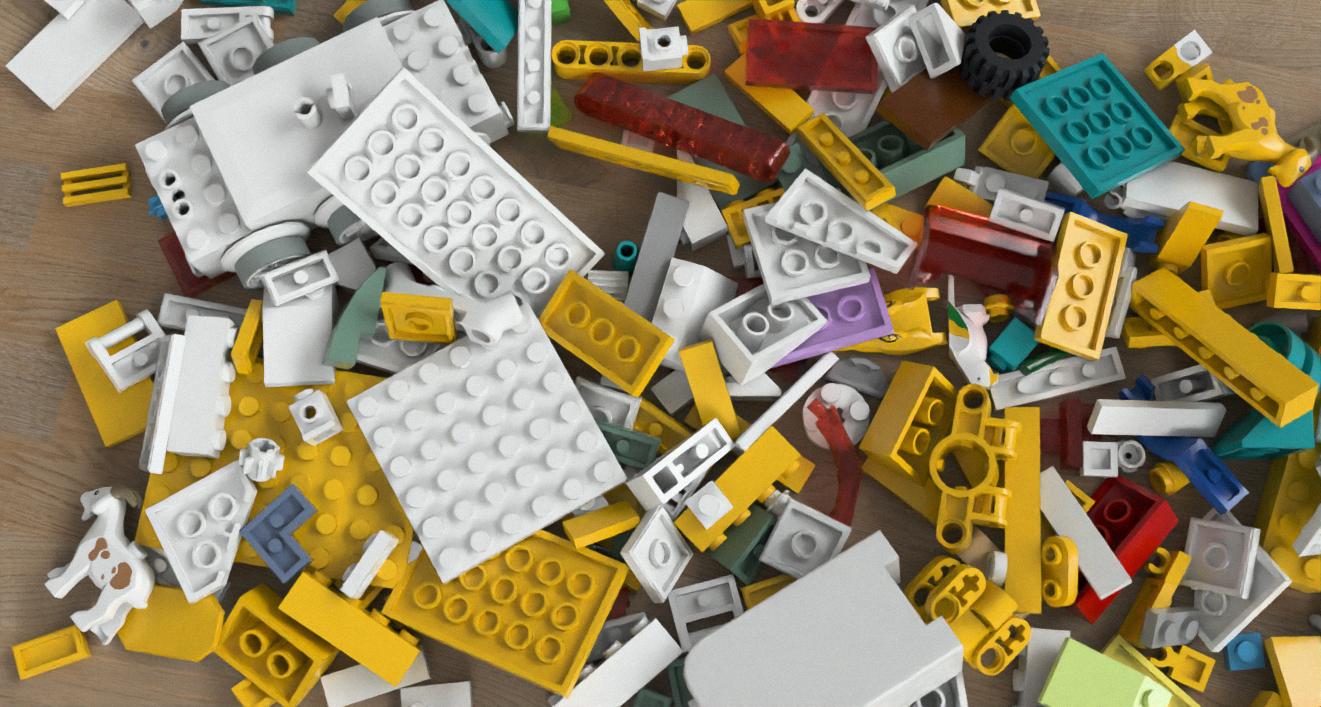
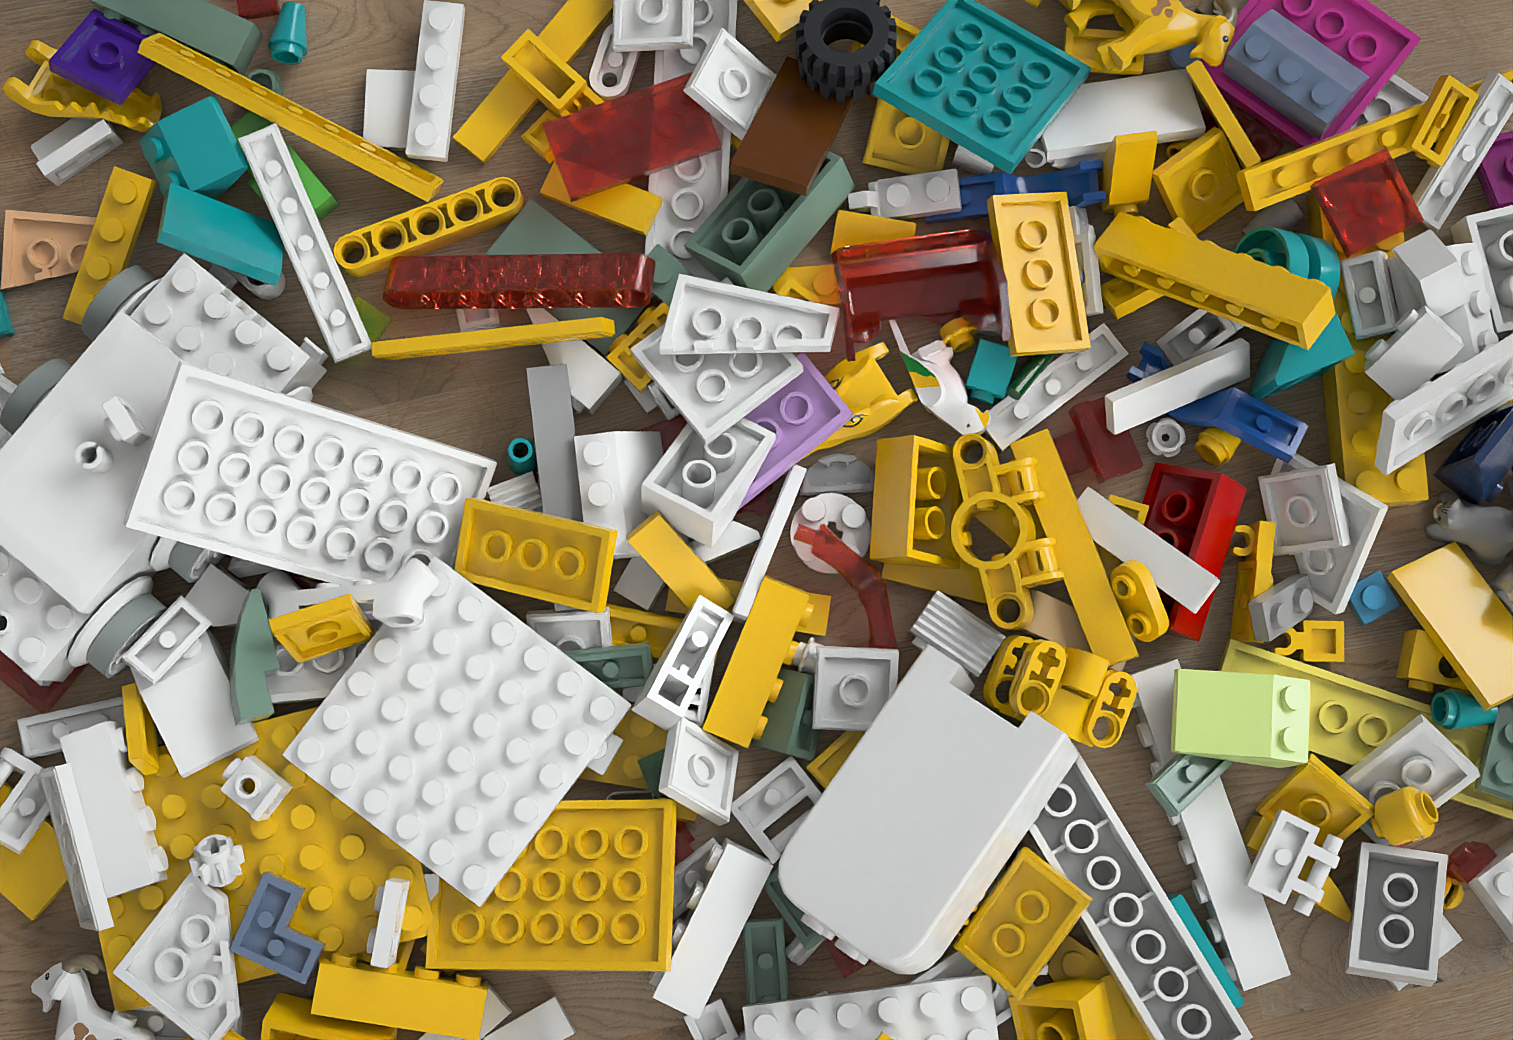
camera: 25 degrees left, 5 degrees up
(601, 524) = (624, 766): yellow tile -> none
(657, 57) = (459, 213): white brick -> none
(709, 504) = (733, 693): white plate -> none
(845, 162) = (721, 245): yellow tile -> none
(903, 534) = (956, 634): none -> white brick
(938, 39) = (766, 58): white slope -> none
(996, 567) = (1071, 627): white tile -> none
(1026, 214) = (946, 218): white plate -> none
(1099, 459) = (1135, 457): white plate -> none

